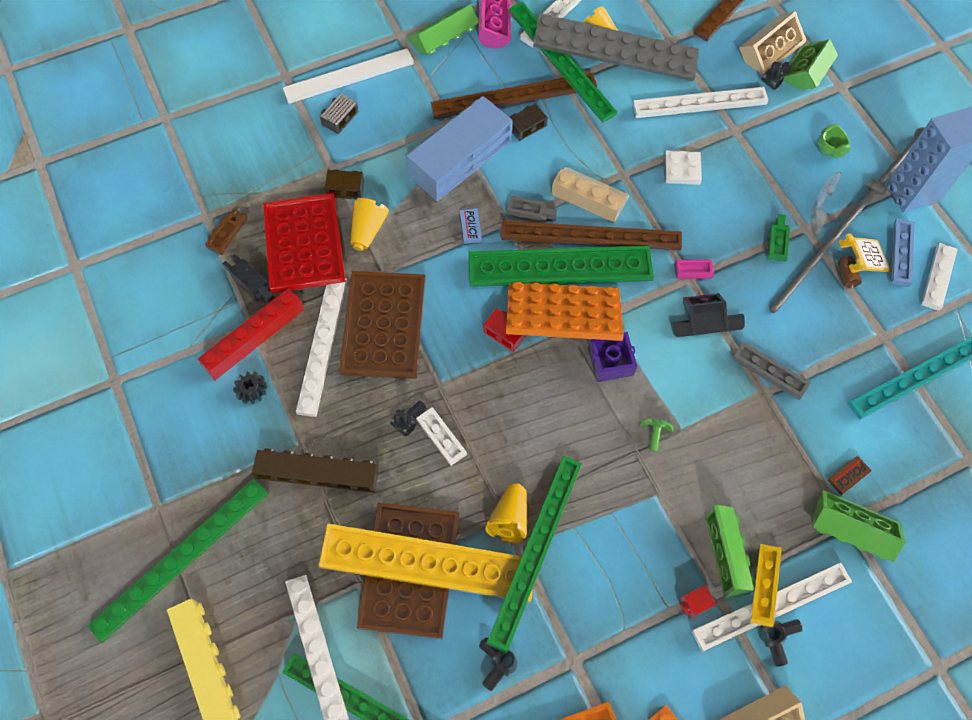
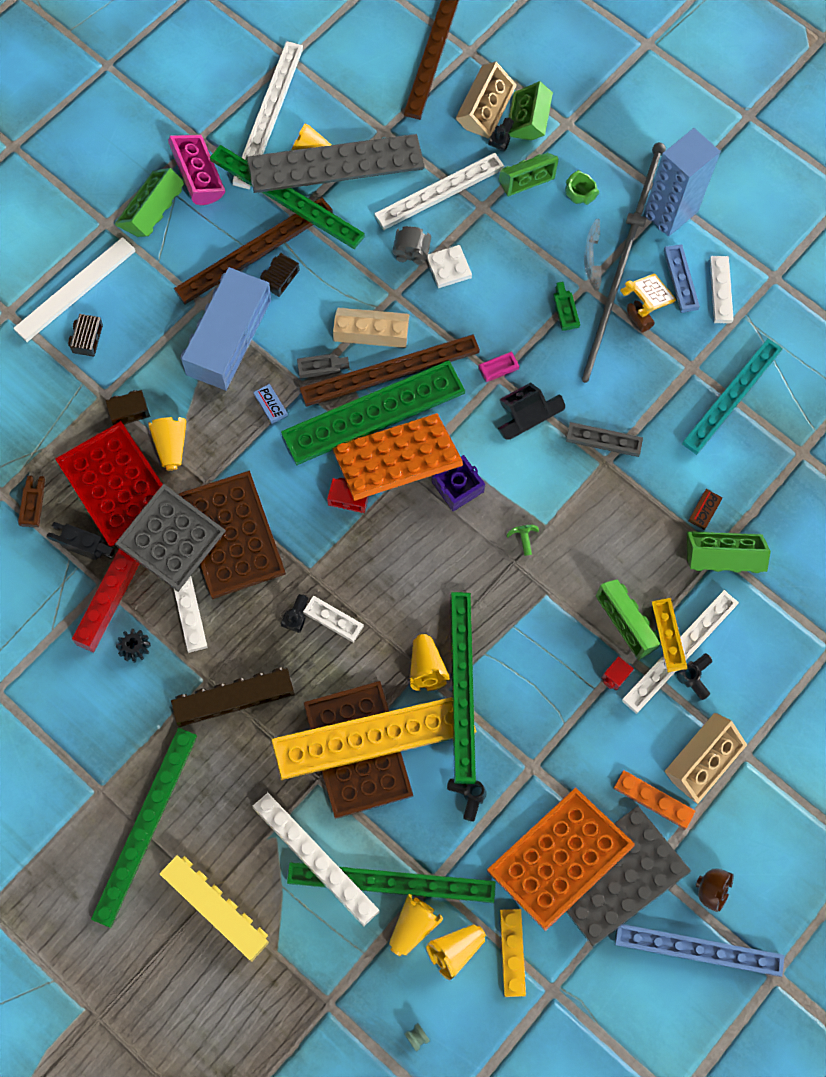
camera: 25 degrees left, 5 degrees up
(325, 304) = (170, 537): none -> dark grey plate
(655, 136) = (411, 245): none -> dark grey brick
(788, 114) = (528, 173): none -> bright green slope

